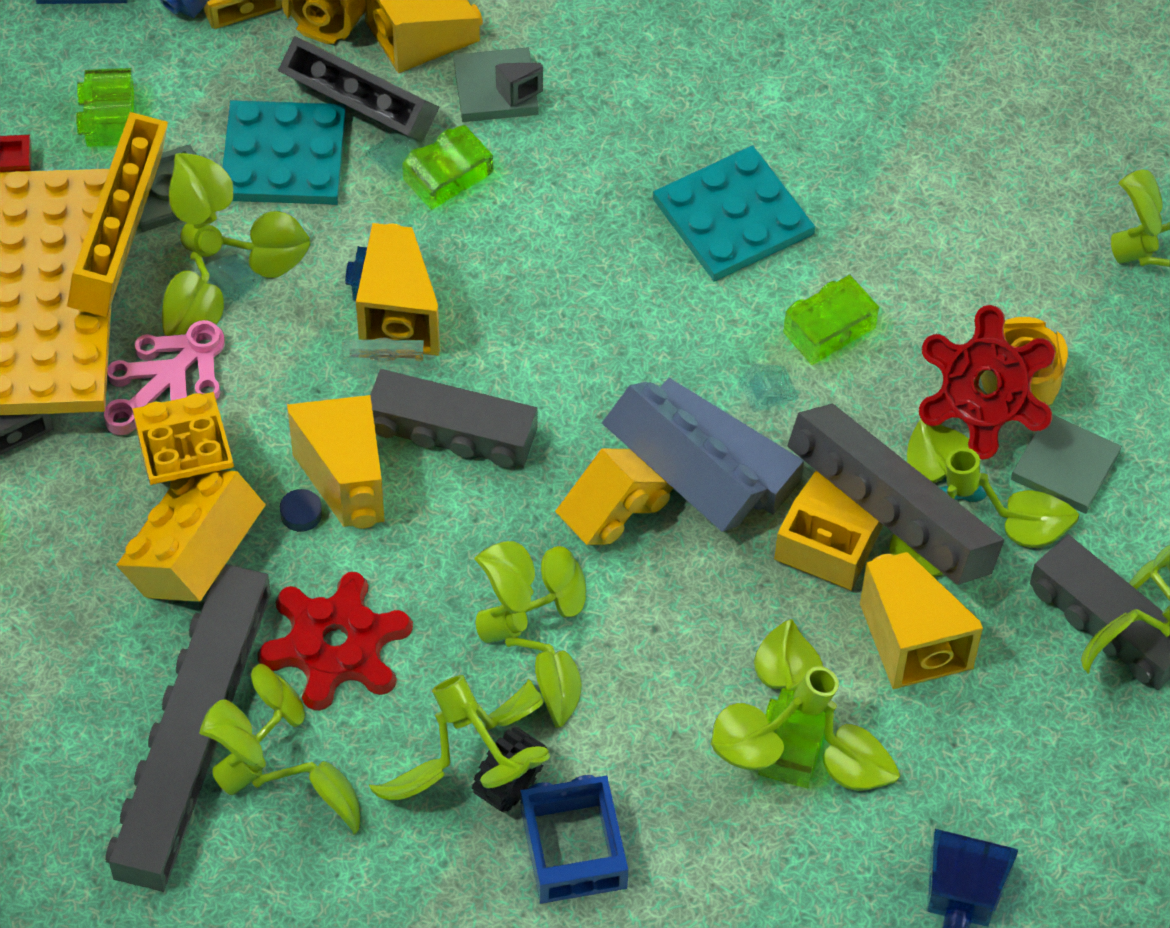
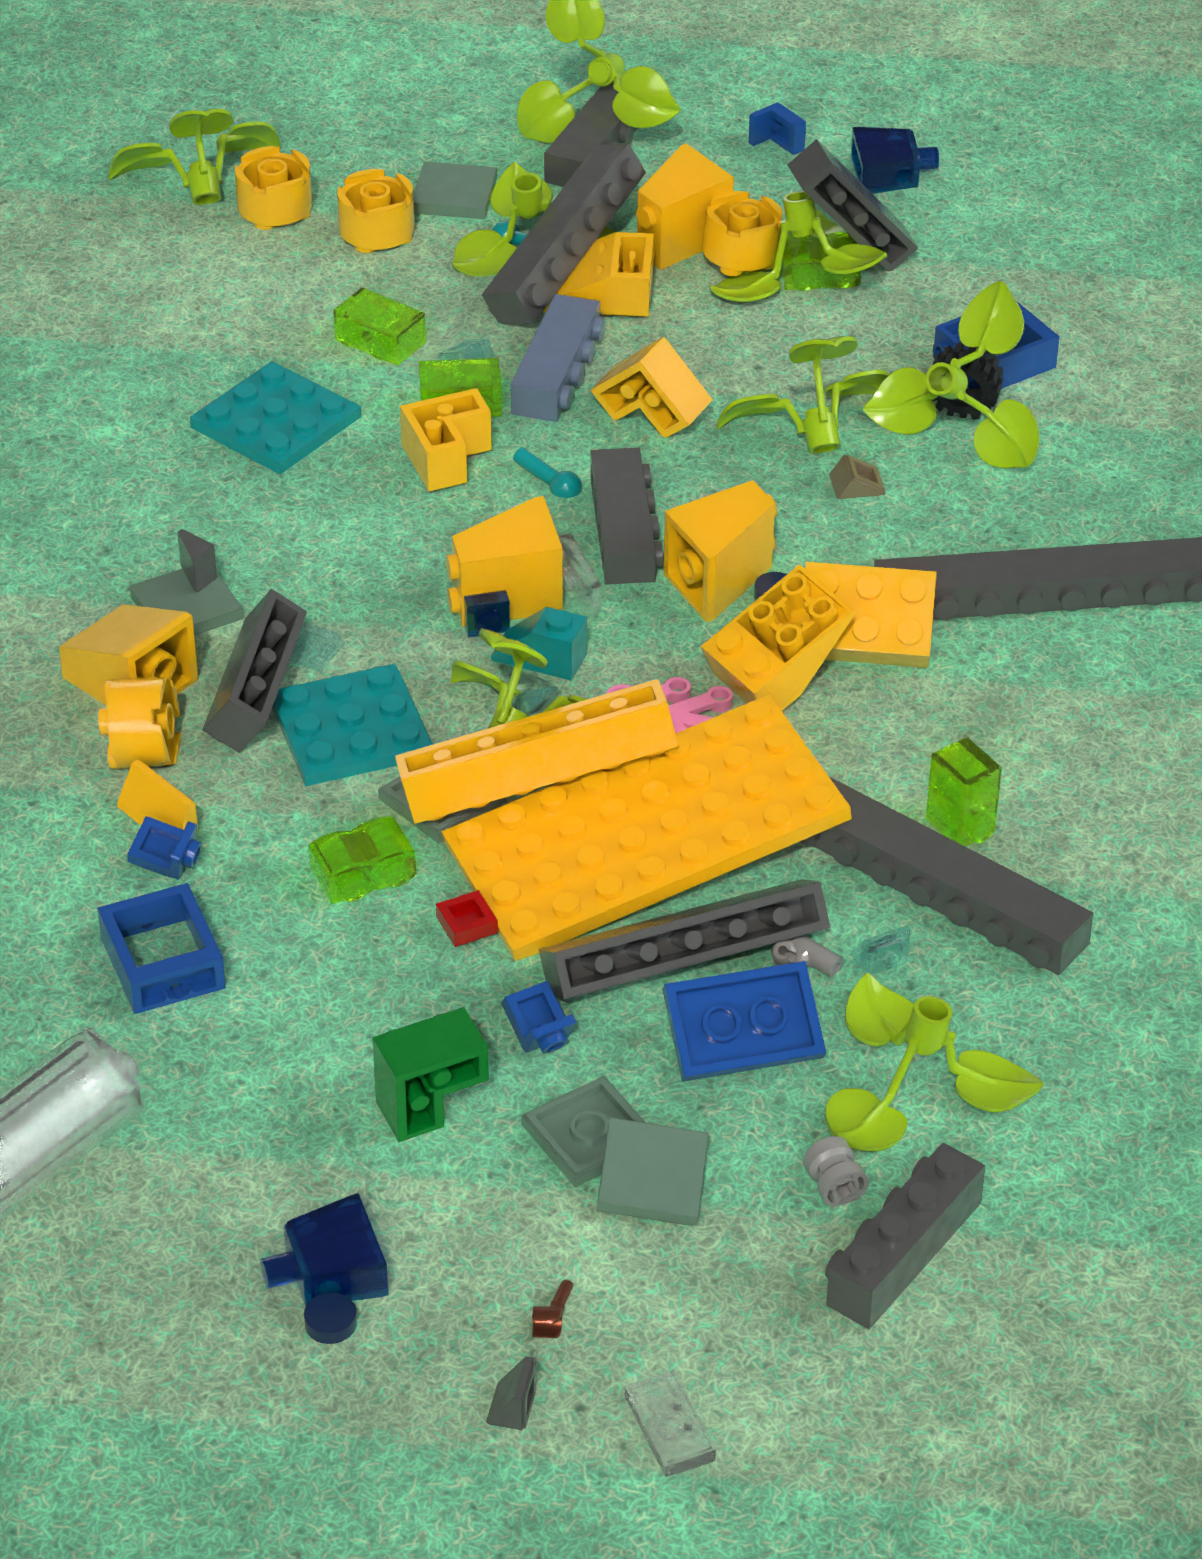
camera: 110 degrees left, 15 degrees down
(245, 763) = (1066, 528): lime plant -> none
(302, 304) = (556, 636): none -> teal slope
(327, 664) = (871, 525): red plate -> none
(430, 642) = (855, 479): none -> dark tan slope
(447, 166) = (329, 596): clear neon green brick -> none
(545, 397) = (562, 484): none -> teal bar
(616, 300) = (443, 433): none -> yellow brick
(684, 455) = (594, 349): sand blue brick -> none
(701, 350) = (458, 375): none -> clear neon green brick
(810, 746) = (851, 204): none -> dark grey brick
(870, 653) = (741, 232): none -> yellow brick
(961, 372) = (434, 181): red plate -> none
(1071, 800) = (780, 126): none -> blue bracket
(1097, 292) = (273, 187): none -> yellow brick

